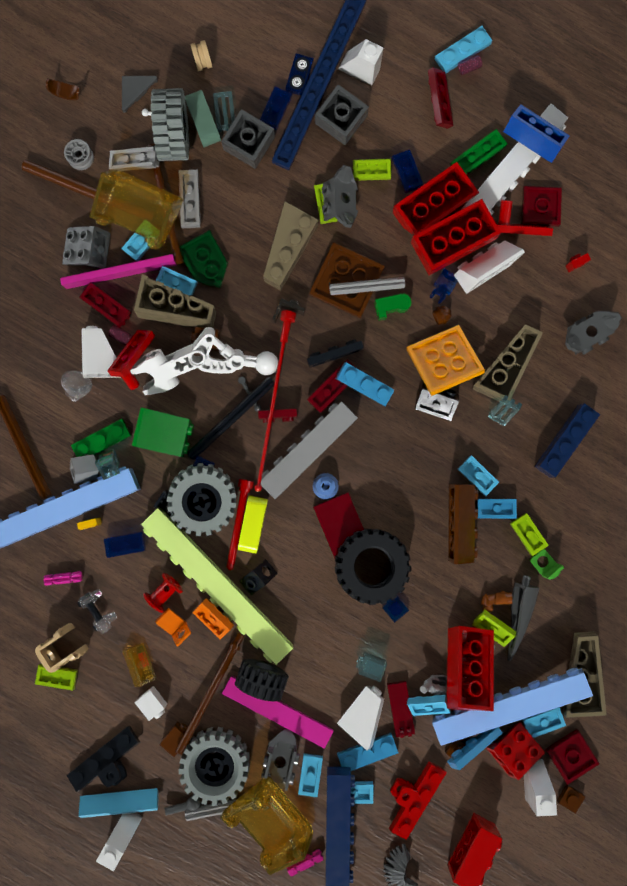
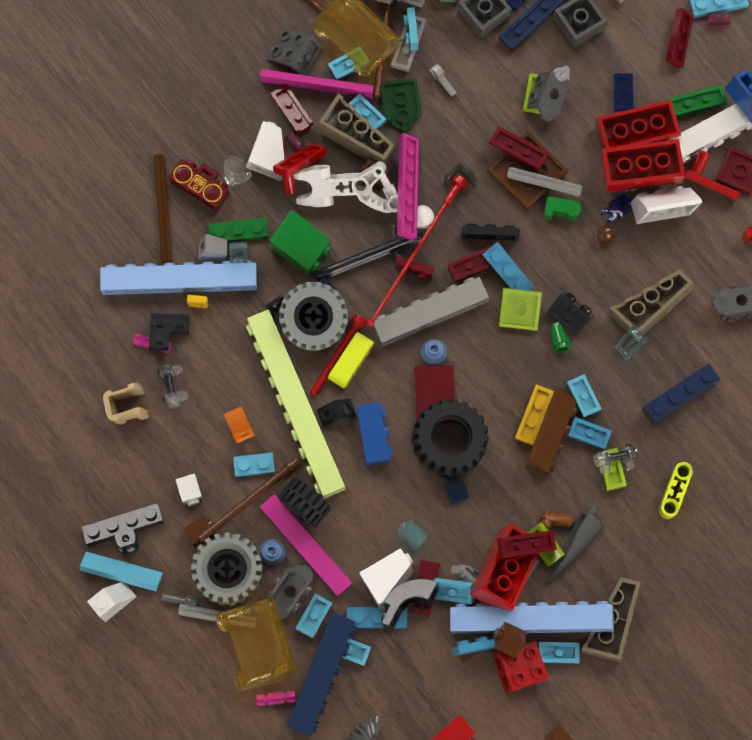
camera: 20 degrees right, 10 degrees down
(38, 410) = (205, 190): none -> dark red piece
(62, 678) = (109, 431): lime plate -> none
(66, 560) = (165, 325): none -> black plate
(124, 544) = (222, 333): clear blue plate -> none
(139, 665) = (190, 451): clear yellow slope -> none
(162, 594) = (239, 391): red hose -> none
(189, 192) = (410, 21): none -> medium azure plate
(201, 655) = (254, 465): none -> medium azure plate
(213, 618) = (280, 430): orange bracket -> none
(229, 219) = (438, 74): none -> light grey bar
(242, 341) = (407, 186): none -> dark pink tile
(251, 725) = (266, 554): none -> medium blue cone
(289, 243) = (490, 111): dark tan wedge -> none
(300, 586) = (374, 433): none -> blue brick
(331, 263) = (518, 148): none -> dark red plate
(372, 169) = (590, 78): lime plate -> none
(385, 731) = (407, 594): none -> arch
(390, 416) = (520, 309): none -> lime tile
(414, 798) = (406, 677): red plate -> none
(435, 429) = (559, 339): none -> green cone
(439, 510) = (534, 415): none -> yellow plate
(445, 360) = (592, 275): light orange plate -> none
(481, 643) = (526, 544): none -> dark red plate
(500, 738) = (509, 639): none -> reddish brown brick
(520, 530) = (604, 458): none -> clear piece
(539, 790) = (529, 707): white slope -> none
(551, 570) = (620, 511): bright green bracket -> none
(572, 756) = (574, 698): dark red tile -> none
(600, 537) = (676, 502): none -> neon yellow beam

